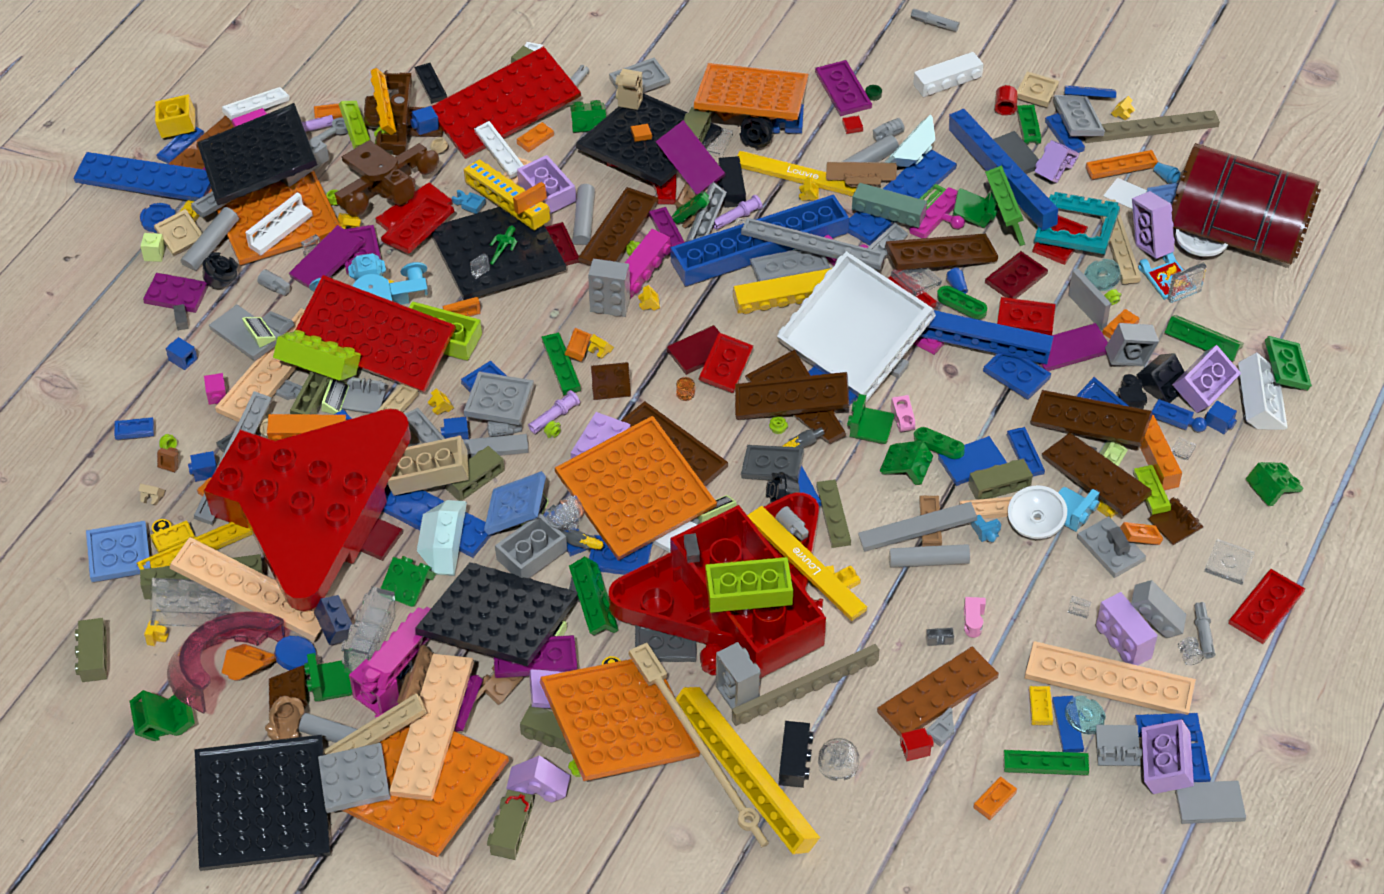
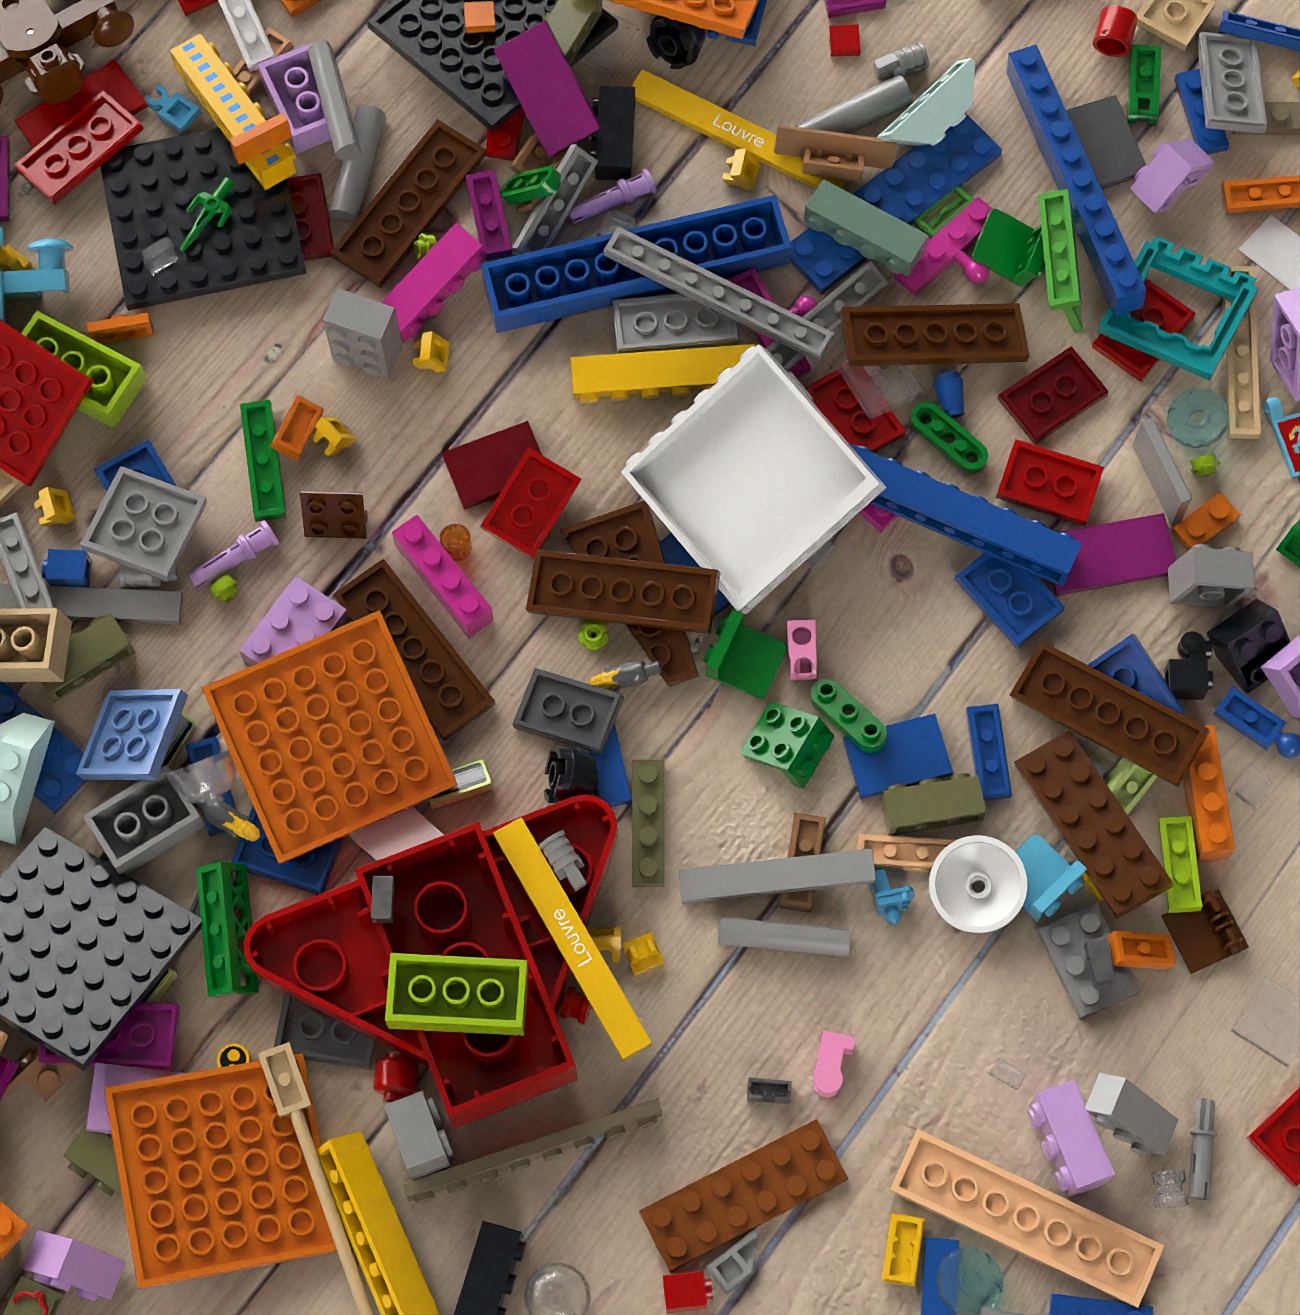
camera: 10 degrees right, 20 degrees up
(567, 177) = (334, 101): none -> light grey brick
(682, 405) = (442, 576): none -> dark pink brick

